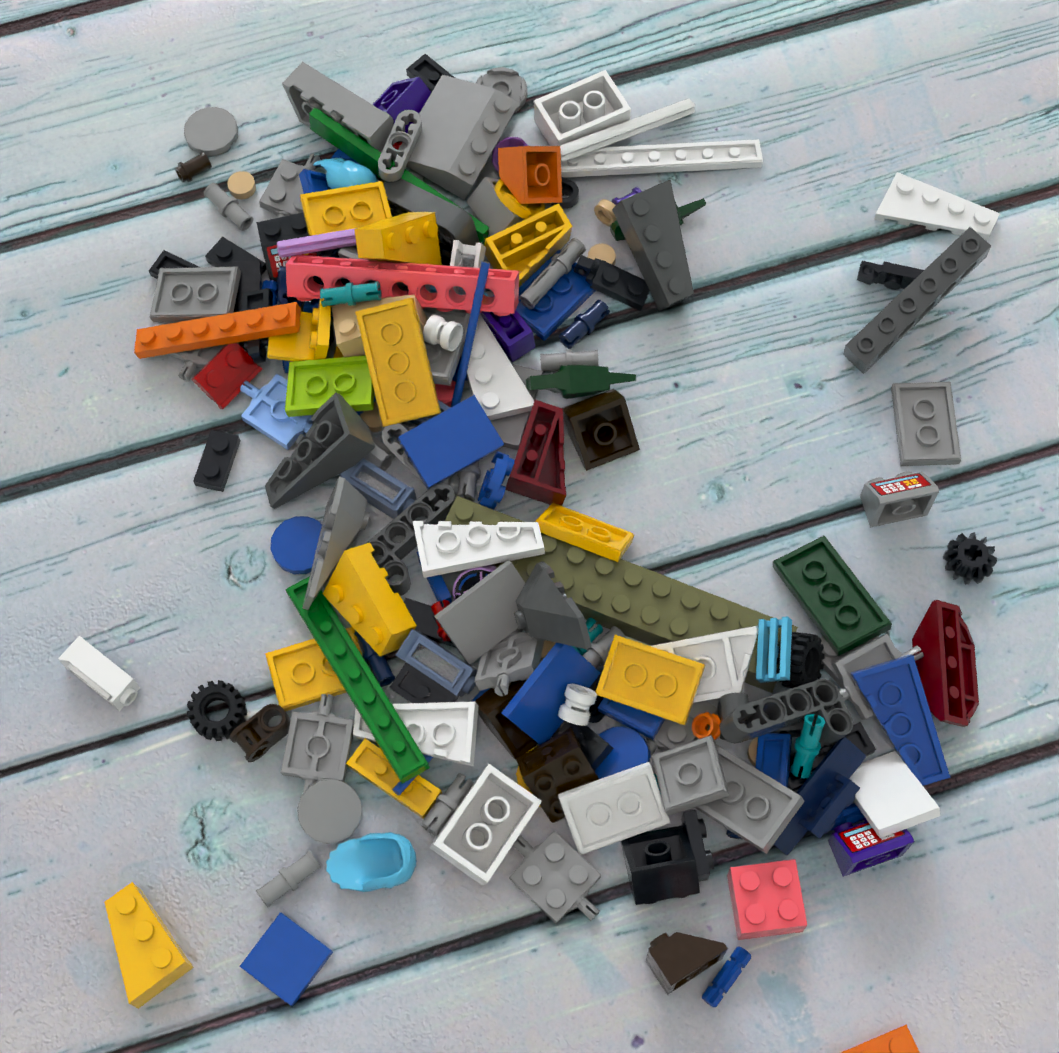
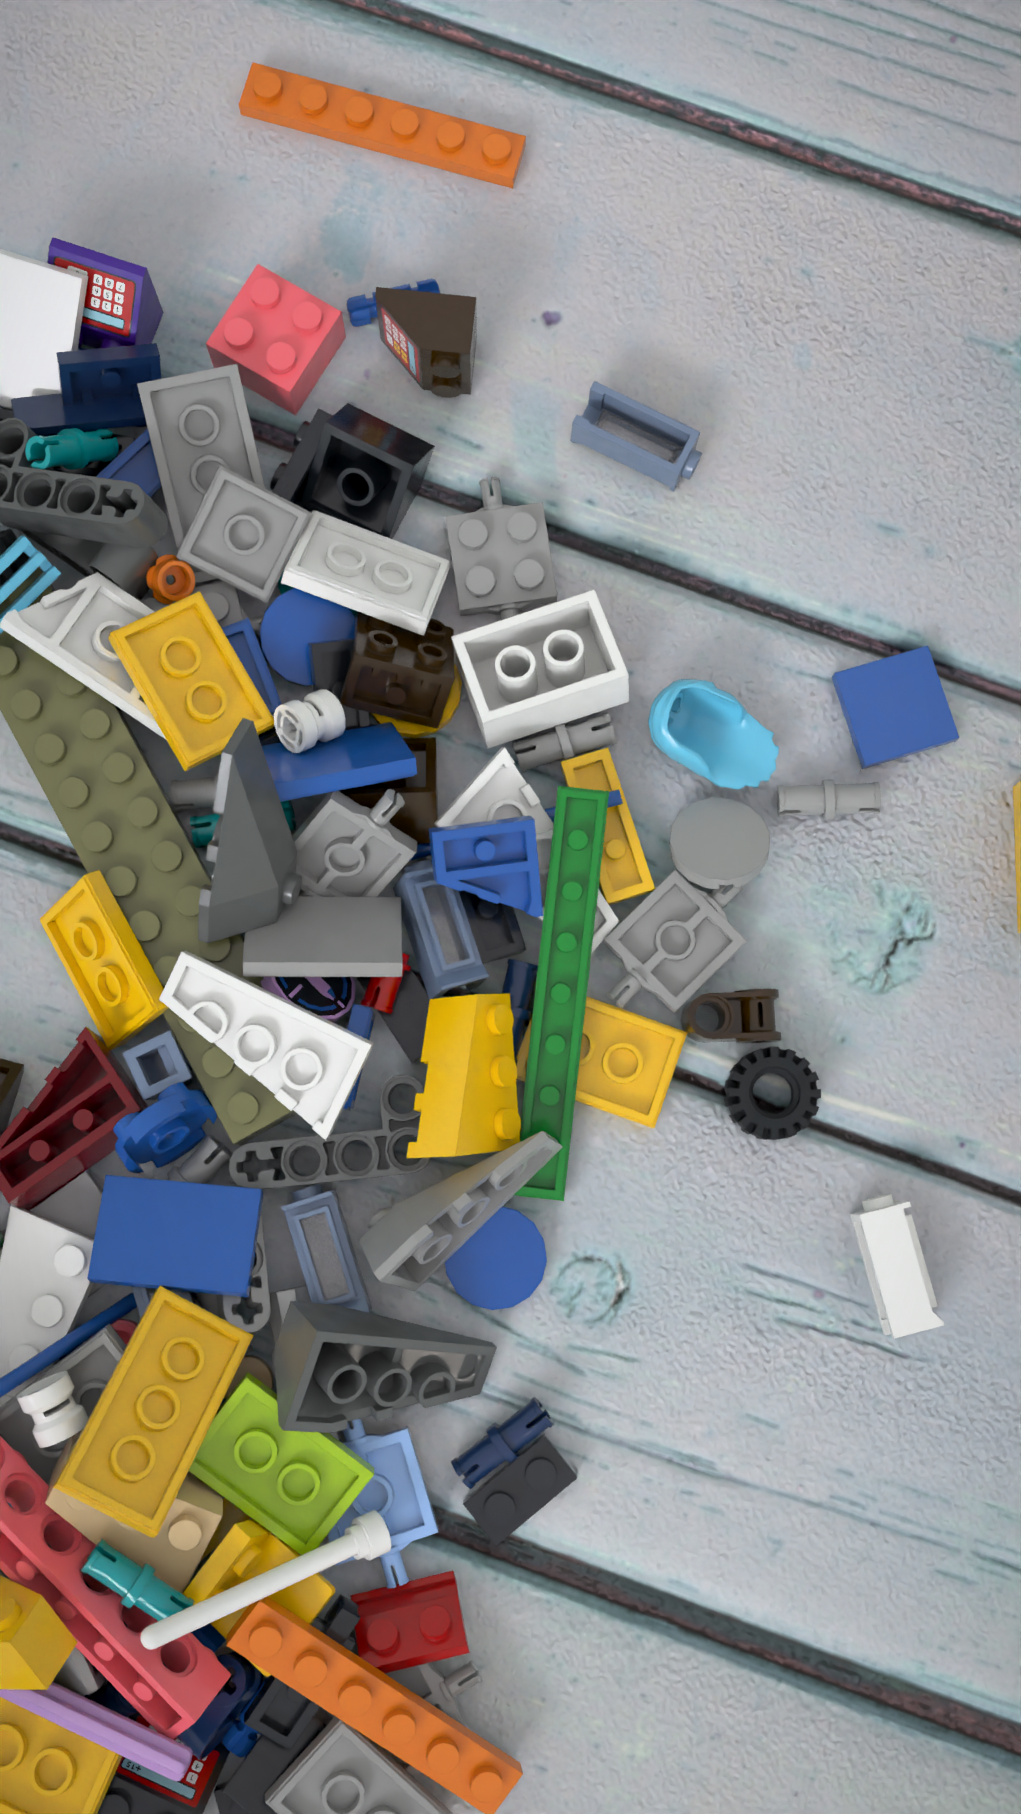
camera: 150 degrees left, 15 degrees up
(238, 471) = (502, 1442): none -> dark blue pin
(271, 384) = (364, 1538): none -> white piece
(434, 701) = (490, 860): none -> blue wing
(517, 508) = (158, 1065): none -> sand blue brick
(533, 998) = (637, 436): none -> sand blue window

